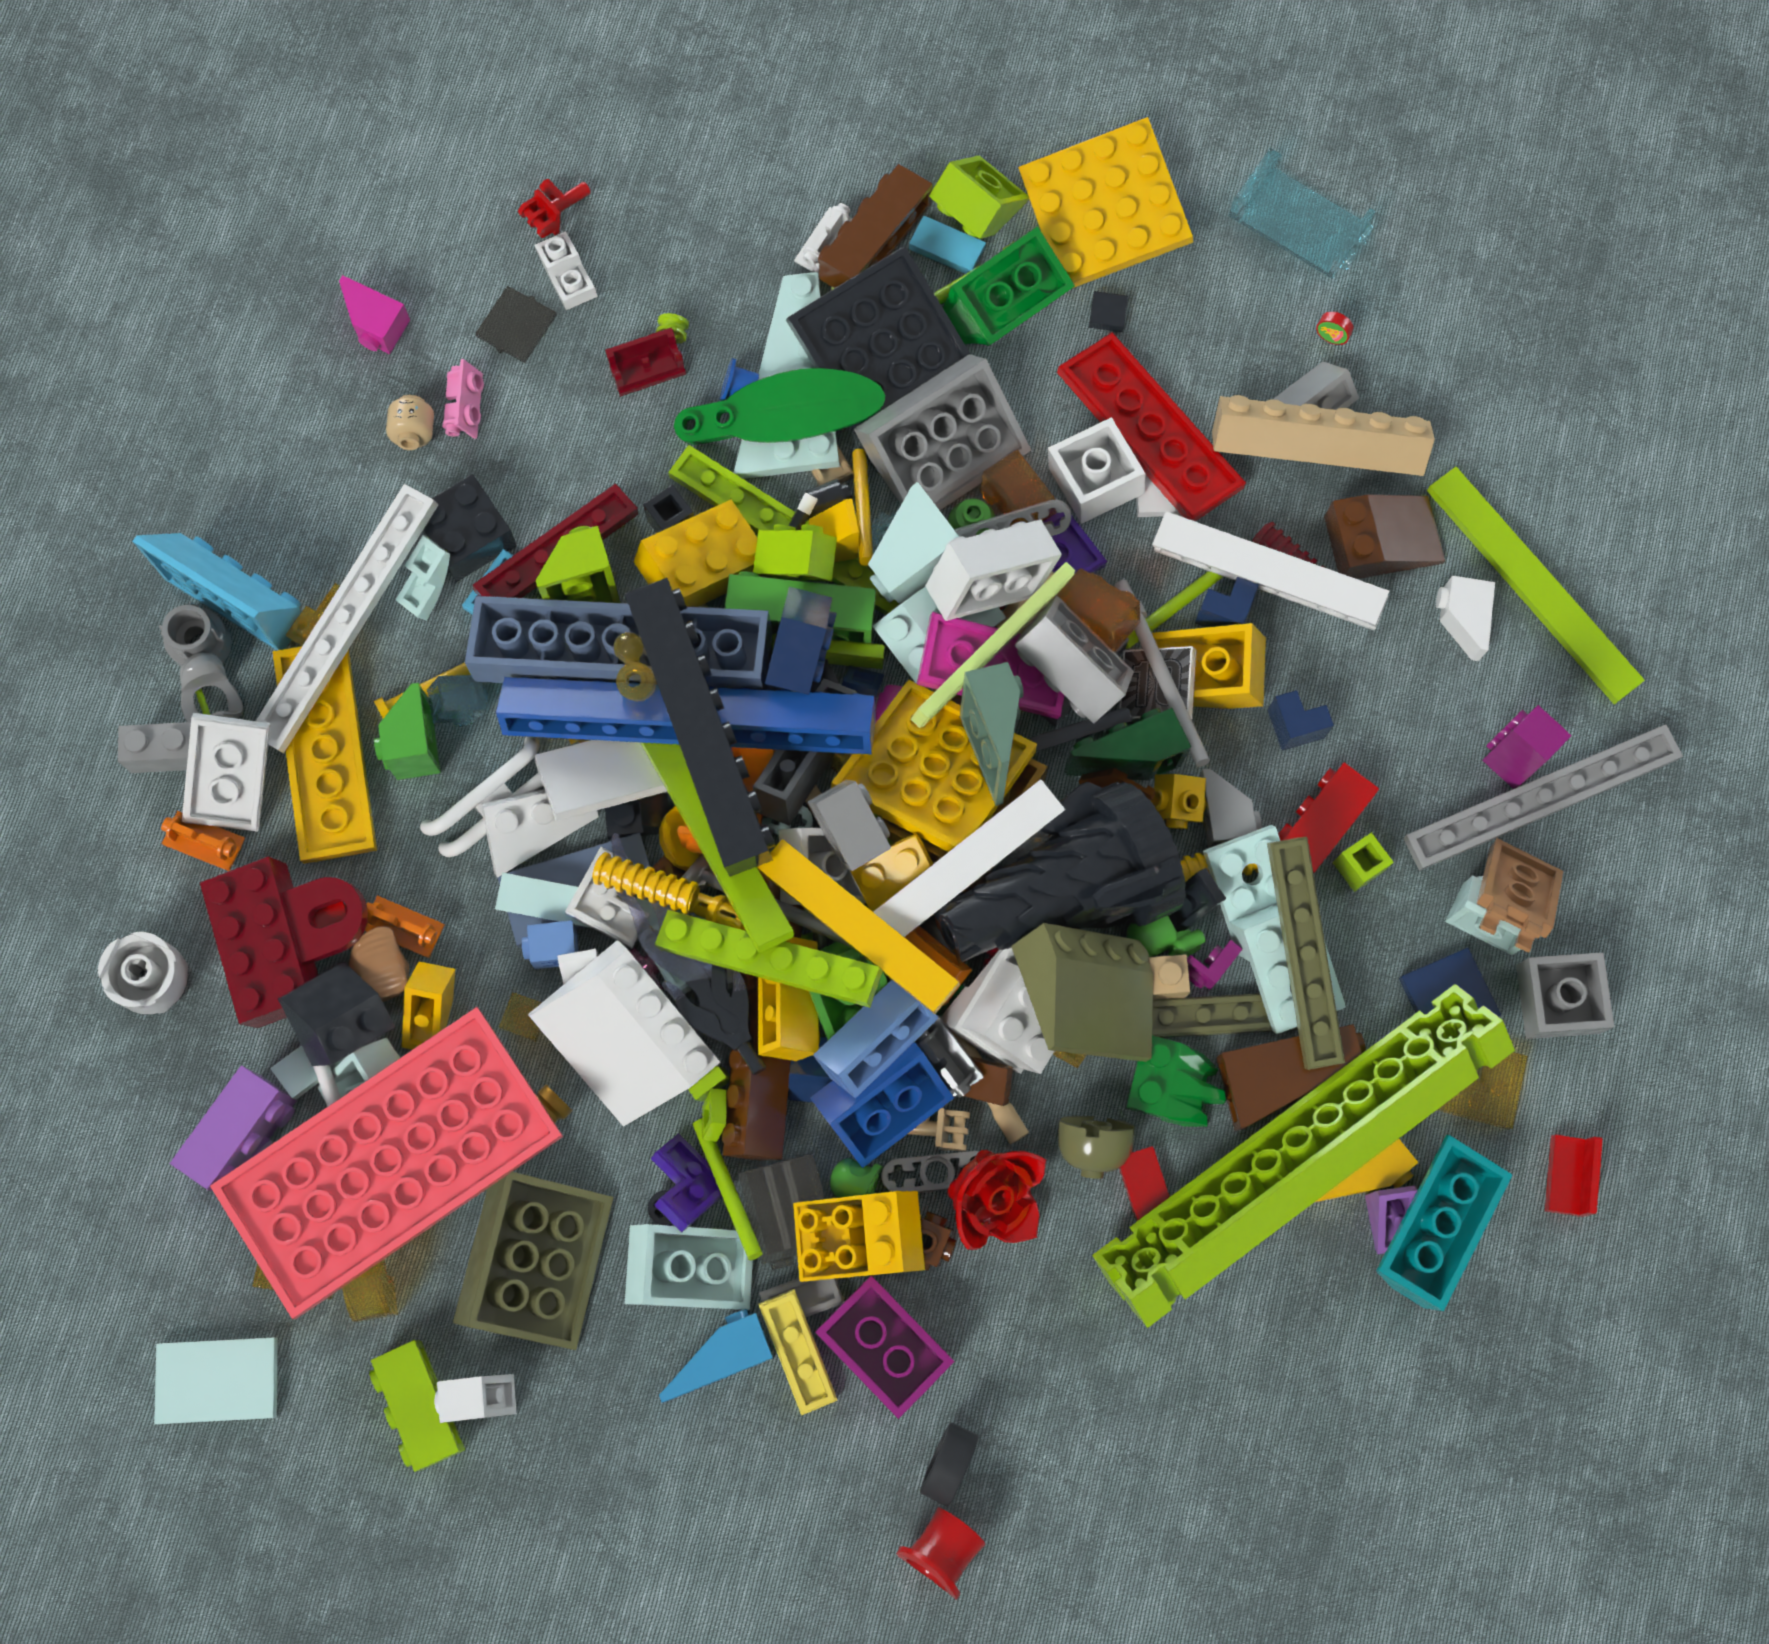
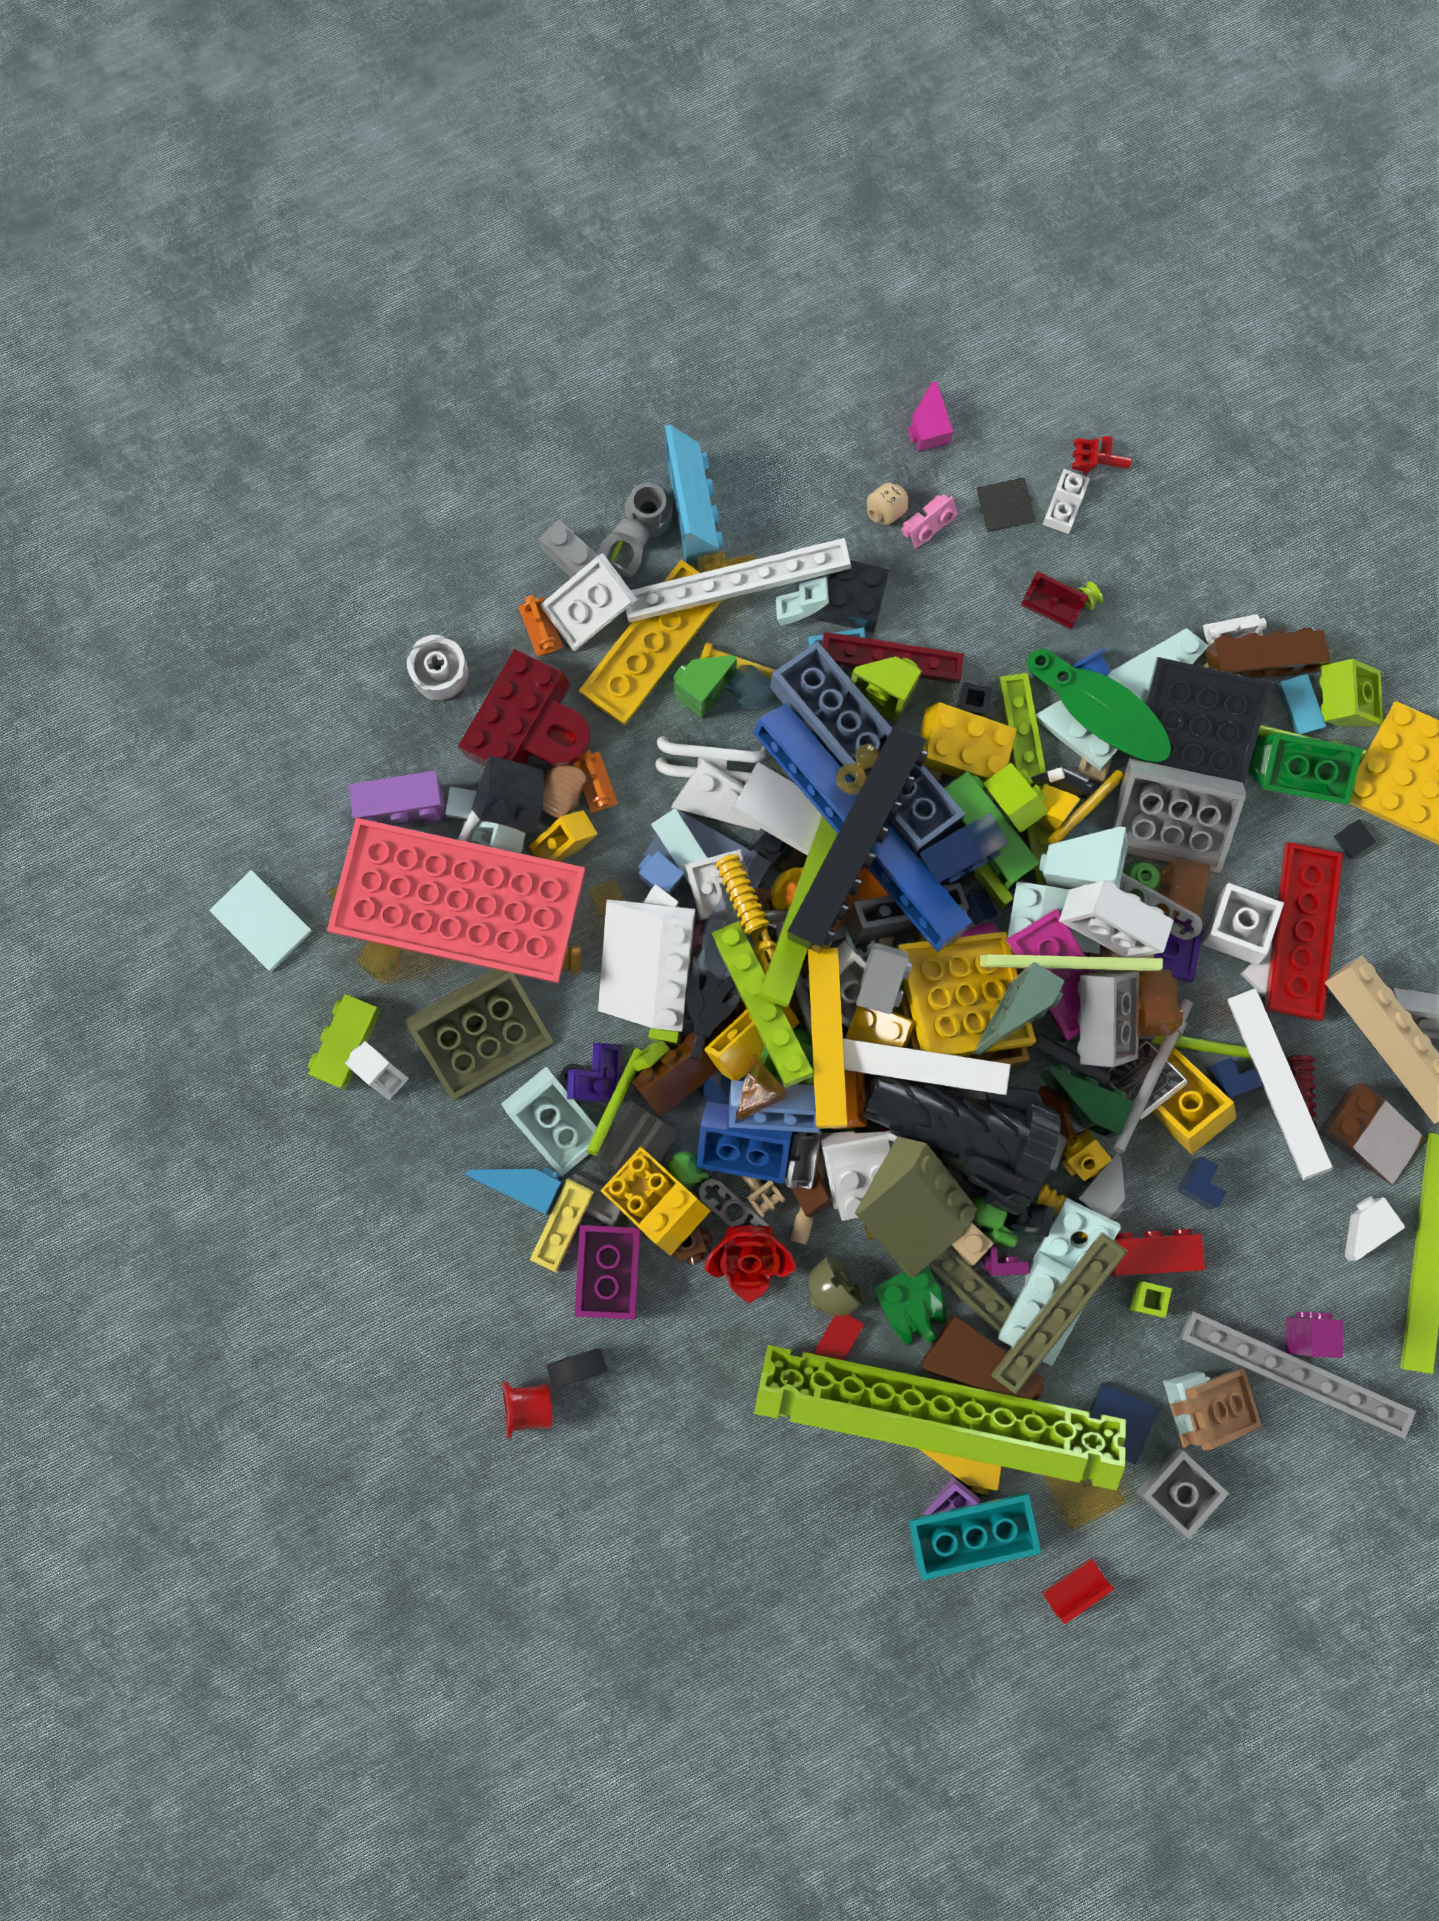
camera: 50 degrees right, 5 degrees up
(847, 1034) = (759, 1089): none -> clear orange tile

